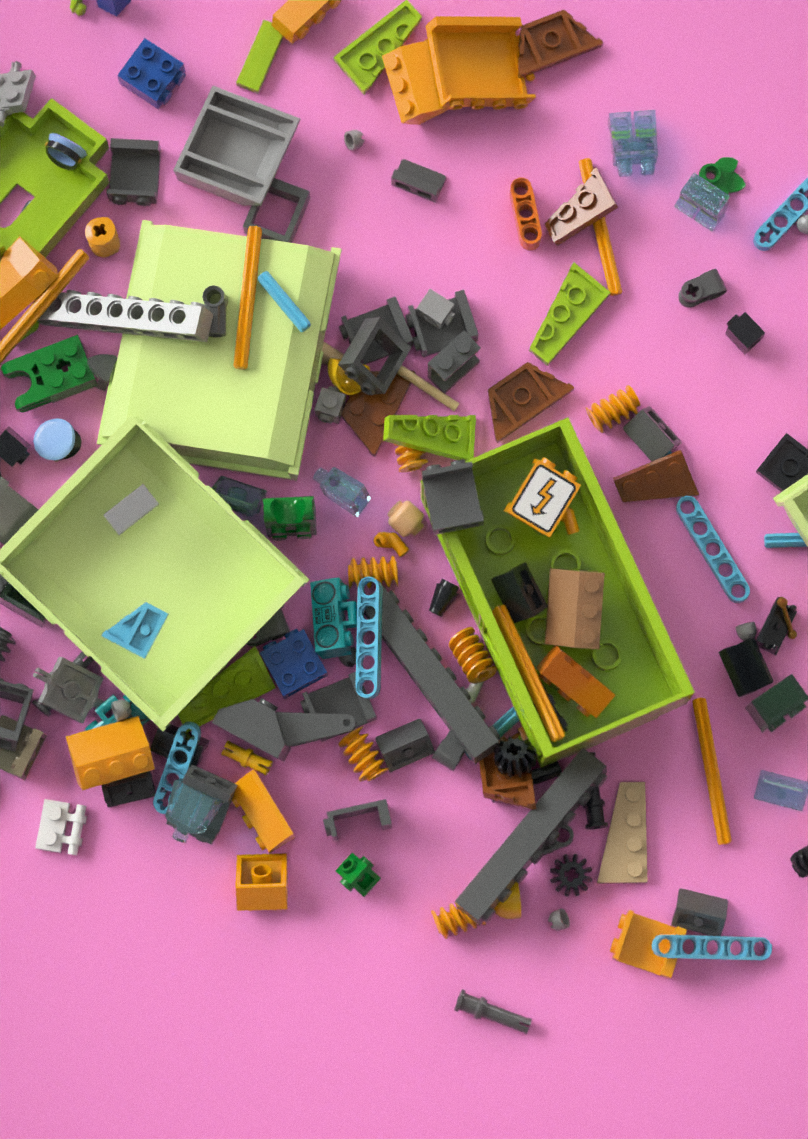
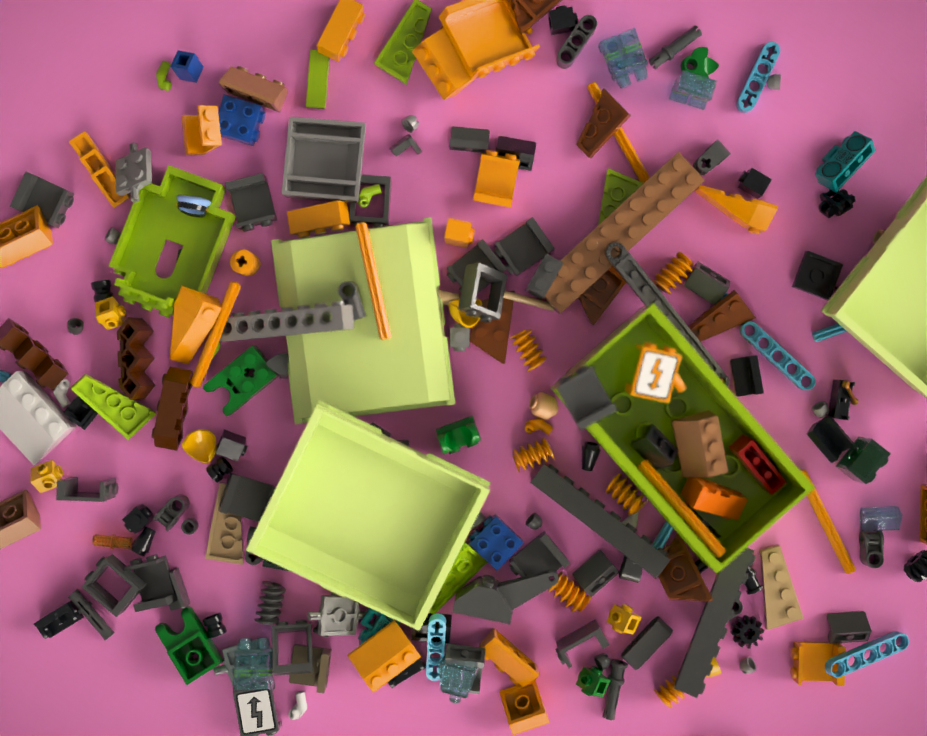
camera: 20 degrees left, 10 degrees up
(53, 826) = (358, 712): white plate -> none
(56, 440) = (264, 428): light blue piece -> none
(103, 73) = (201, 131): none -> light orange panel
(121, 709) = (381, 620): light grey hinge -> none
(131, 509) = (340, 480): light grey tile -> none
(138, 630) = (376, 568): medium azure wing -> none
(182, 43) = (254, 88): none -> medium nougat slope
(208, 212) = (318, 218): none -> light orange brick
(240, 496) = (413, 430): clear light blue slope -> none
(247, 758) = (482, 622): yellow pin -> none
(274, 201) = (367, 193): none -> lime arm
(284, 301) = (402, 276): medium azure axle -> none
(329, 622) = (511, 500): teal piece -> none
(338, 160) = (403, 144): none -> dark grey tile
(343, 490) = (496, 401): clear light blue torso -> none
(368, 279) = (459, 233): none -> light orange brick
(373, 649) = (546, 518): medium azure beam -> none
(378, 856) = (602, 661): none -> dark grey hinge
(387, 885) = (615, 684): none -> dark grey pin
(420, 808) = (623, 619): none -> yellow brick
(436, 233) = (496, 178): none -> light orange panel
(436, 309) = (516, 238): light grey brick -> none
(440, 435) = (546, 337): lime wing -> none
(440, 850) = (646, 643): none -> dark grey beam
(467, 211) = (521, 148): none -> panel
(515, 756) = (689, 559): black gear -> none
(521, 203) = (559, 131): orange beam -> none
(564, 338) = (624, 225): none -> medium nougat brick
(569, 405) = (650, 294): none -> dark grey plate
(573, 76) = (562, 20): none -> black brick
(587, 96) = (580, 33): none -> dark grey beam
(640, 657) = (757, 464): none -> red brick
(666, 561) = (746, 375): none -> black panel
(689, 151) = (669, 51): none -> dark grey pin
(728, 366) = (750, 214): none -> light orange wedge
(760, 816) = (870, 547): none -> dark grey piece

